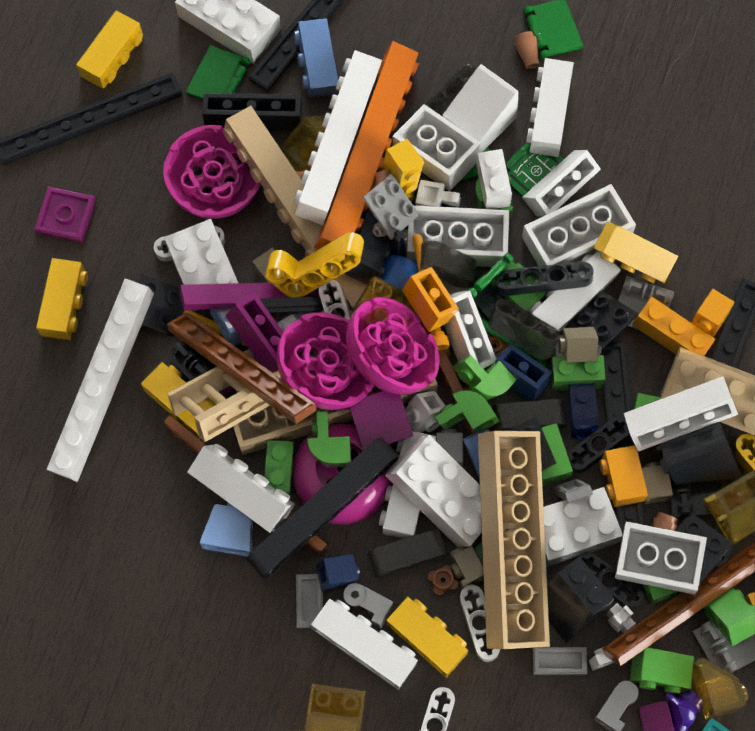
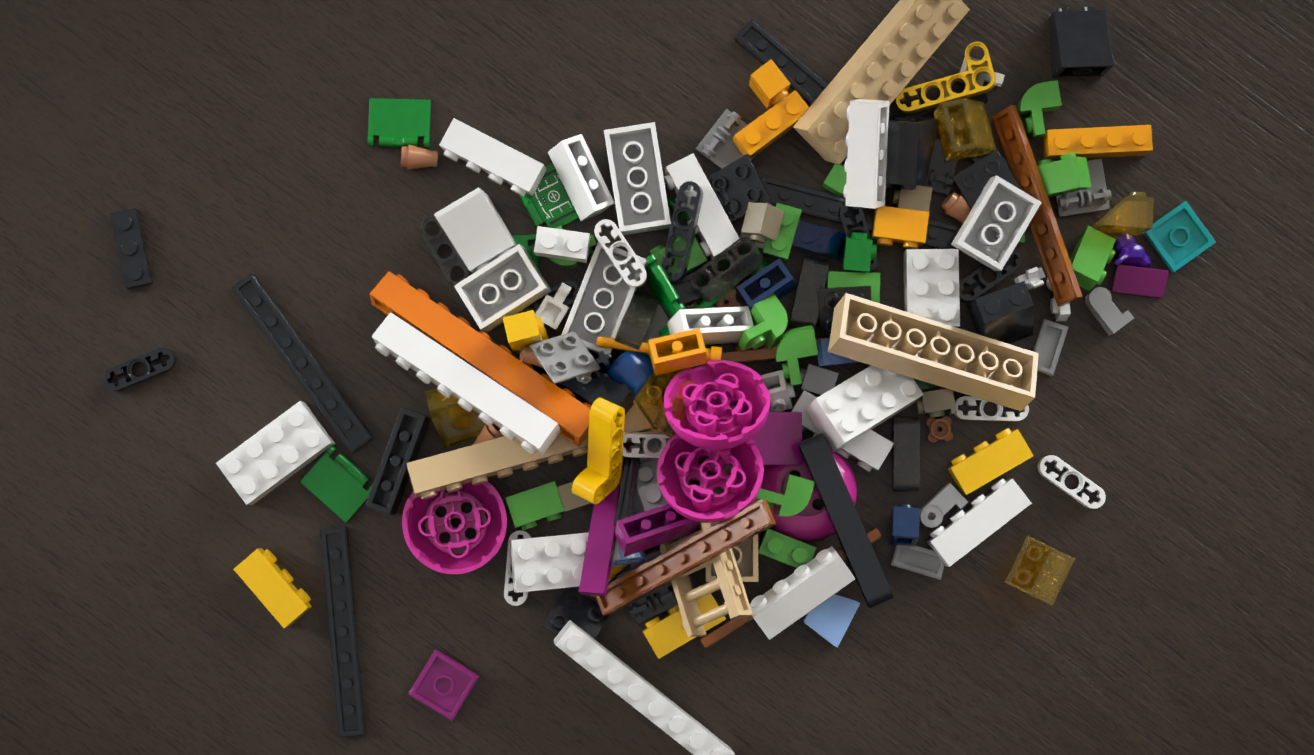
camera: 70 degrees left, 15 degrees up
(62, 299) = (539, 712): yellow brick -> none
(249, 236) = (535, 505): none -> bright green brick
(316, 58) = (357, 377): medium blue brick -> none
(502, 241) = (604, 241): none -> white beam
(573, 490) = (899, 279): light grey tile -> none
(584, 443) = (858, 252): none -> green brick
(635, 253) = (683, 133): yellow brick -> none

